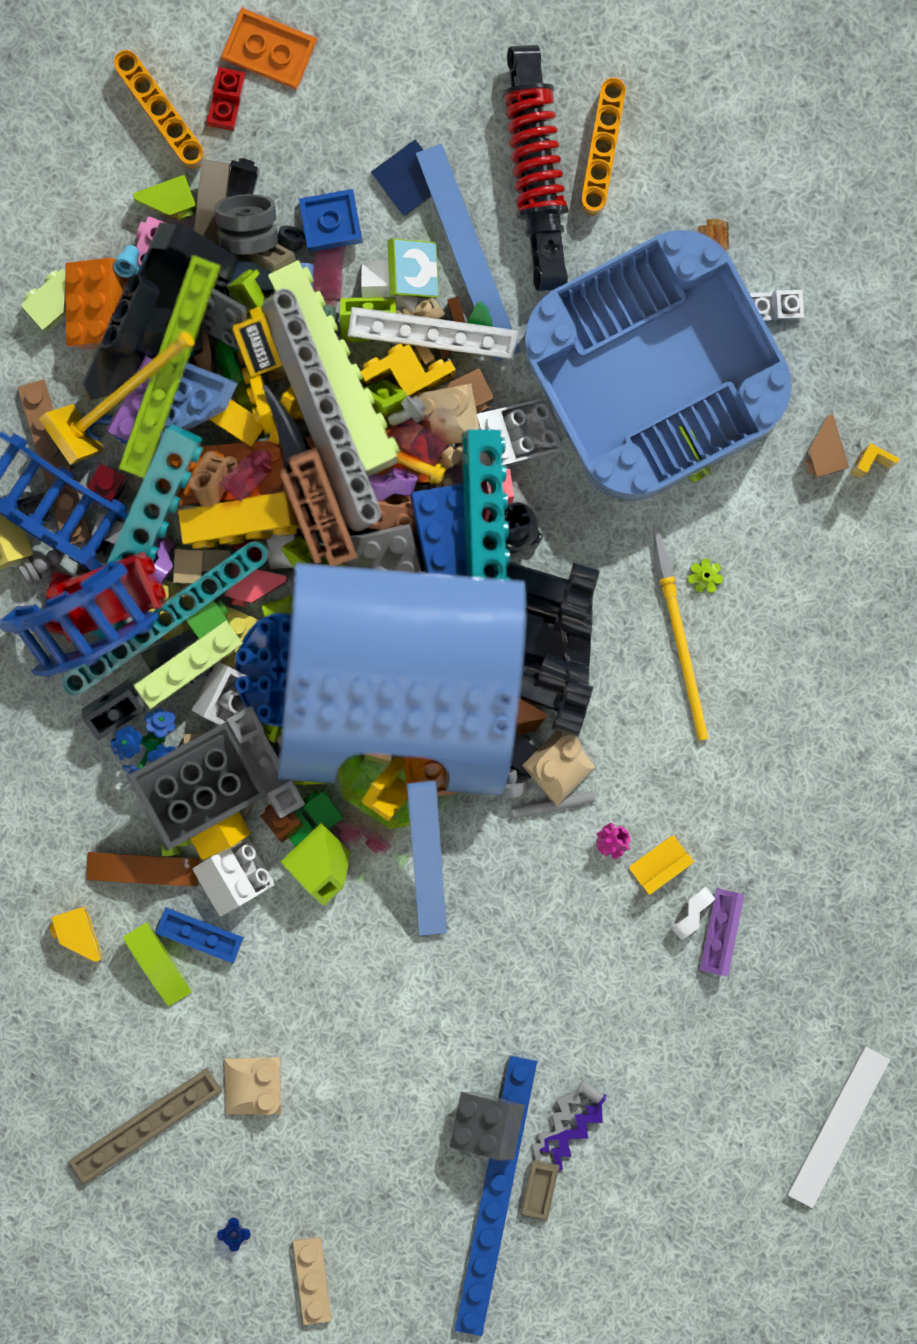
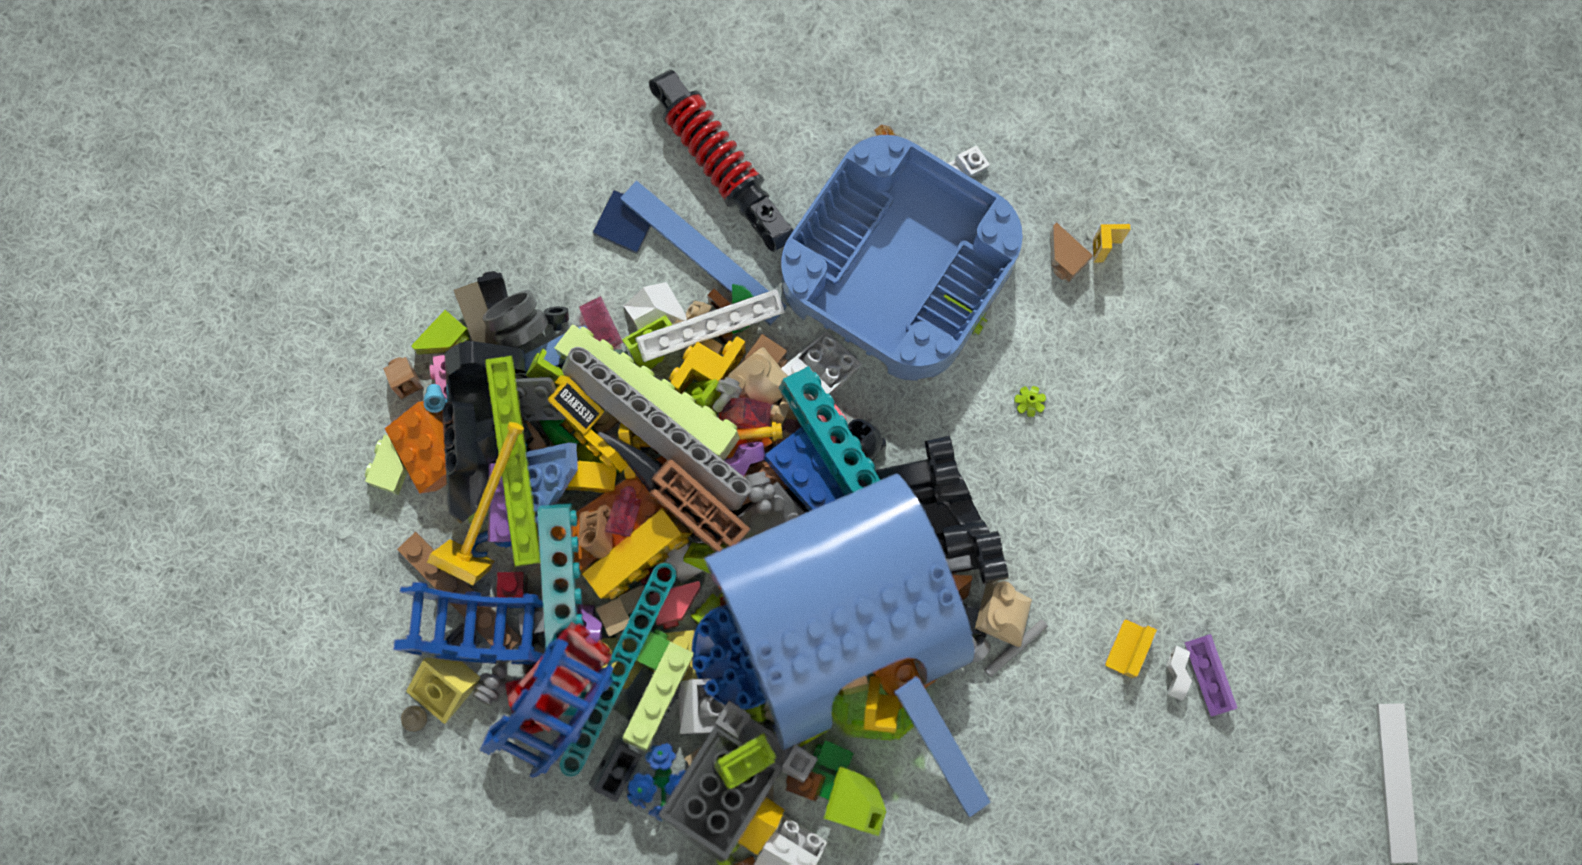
camera: 30 degrees left, 10 degrees down
(108, 219) = (402, 377): none -> medium nougat slope
(154, 97) = (390, 264): light orange beam -> none
(226, 99) = (447, 237): red slope -> none
(234, 771) = (745, 761): none -> lime hinge
(269, 48) = (461, 182): orange tile -> none
(273, 258) = (548, 337): dark tan tile -> none
(330, 220) = (581, 285): blue tile -> none
(354, 832) = (870, 760): clear pink slope -> none
(387, 526) = (760, 492): none -> light grey piece
(412, 268) = (666, 286): tile -> none
(603, 133) = (759, 109): light orange beam -> none
(613, 841) = (1081, 650): dark pink gear -> none
(664, 569) = (994, 412): yellow piece -> none

